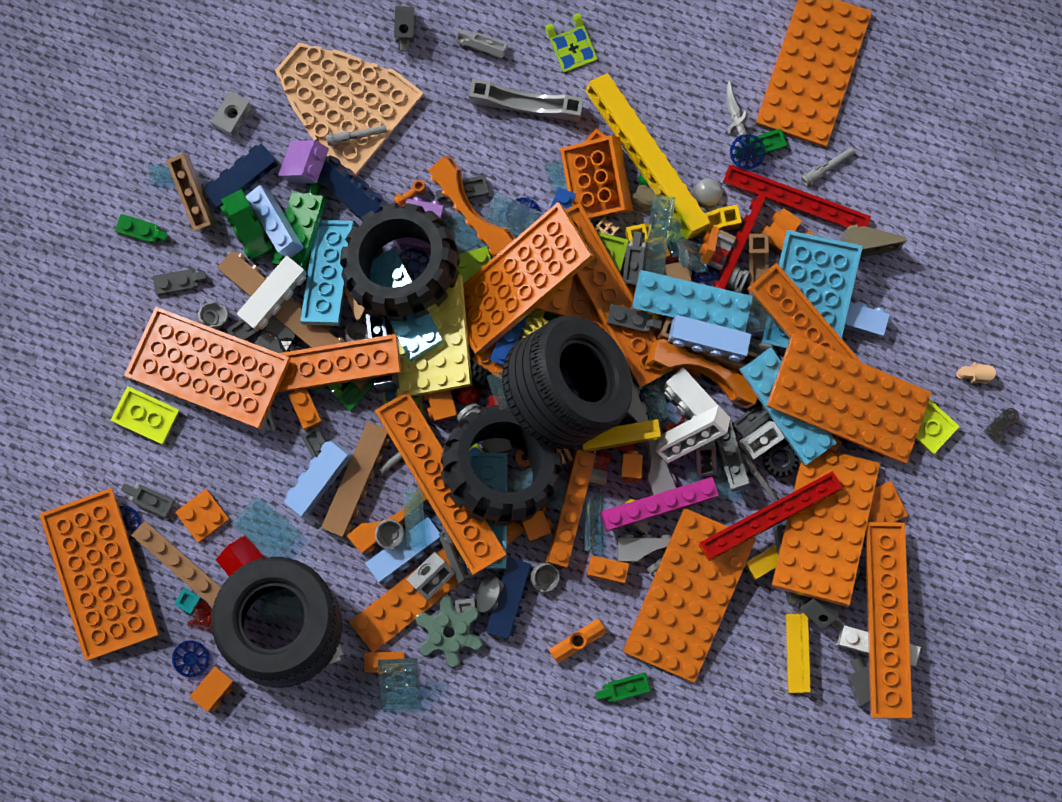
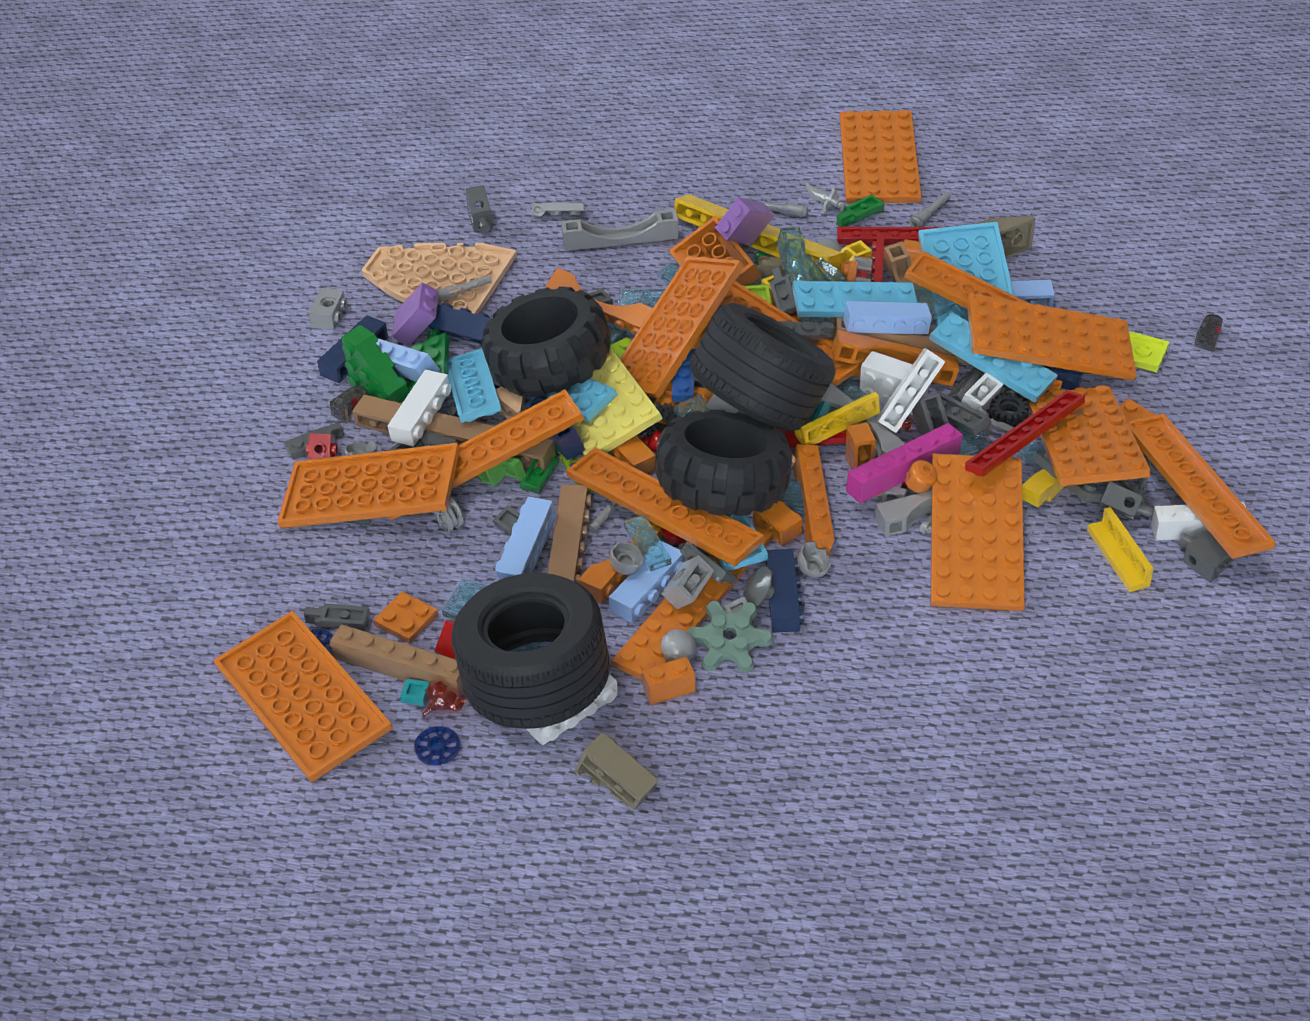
camera: 15 degrees left, 35 degrees down
(140, 229) = (259, 413): green hinge -> none
(145, 415) = (311, 550): neon yellow plate -> none
(159, 174) = (275, 367): clear light blue plate -> none
(181, 300) = (320, 441): none -> brick
(191, 192) = (305, 364): medium nougat brick -> none
(212, 690) = (474, 762): orange brick -> none
(225, 243) = (344, 403): none -> clear smoke leg
(305, 409) = (488, 495): orange brick -> none
(314, 740) = (617, 771): none -> dark tan wedge
(399, 684) = (695, 686): clear light blue plate -> none
(403, 631) = (677, 645): none -> light grey hair
(572, 47) = (645, 195): lime flag -> none
(589, 634) = (877, 604): orange piece -> none
(593, 524) = (843, 507): clear light blue plate -> none
(600, 468) = (829, 464): leg -> none
(607, 570) = (878, 537): orange brick -> none
(624, 688) = (949, 632): green hinge -> none
(631, 162) = (744, 221): none -> medium lavender brick
(664, 528) = (920, 476): none -> orange head
(696, 118) = (796, 210): none -> light grey pin
(747, 151) = (849, 211): clear blue wheel -> none
(977, 373) = (1159, 303): light nougat arm -> none

